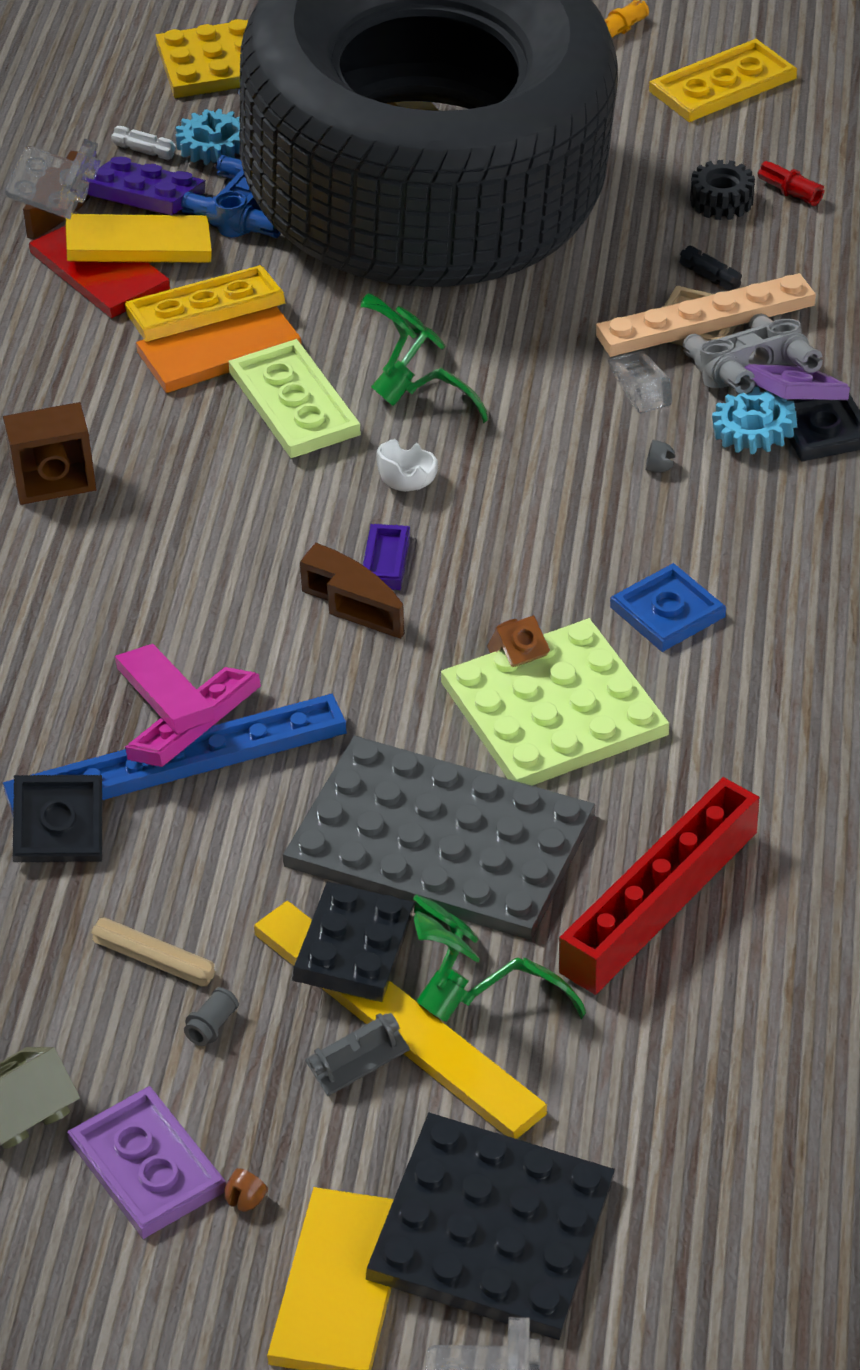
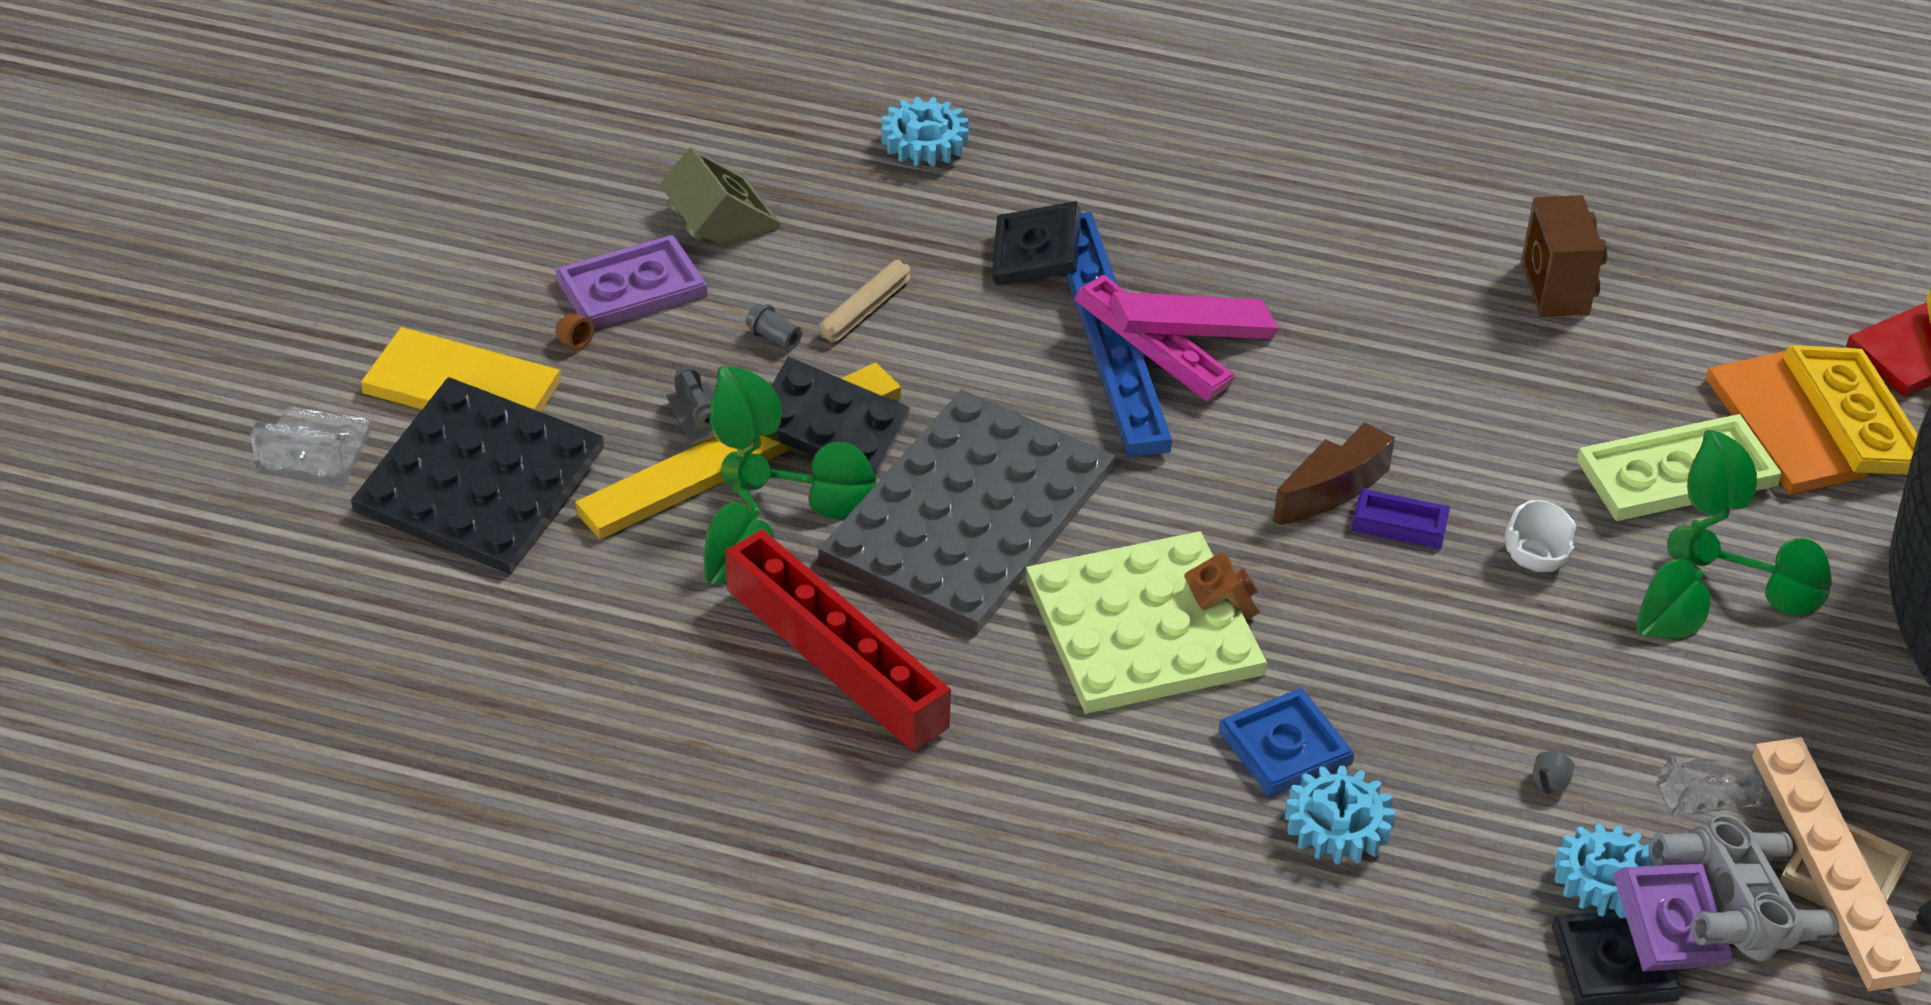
camera: 95 degrees right, 0 degrees up
(747, 562) = (1363, 812): none -> medium azure gear

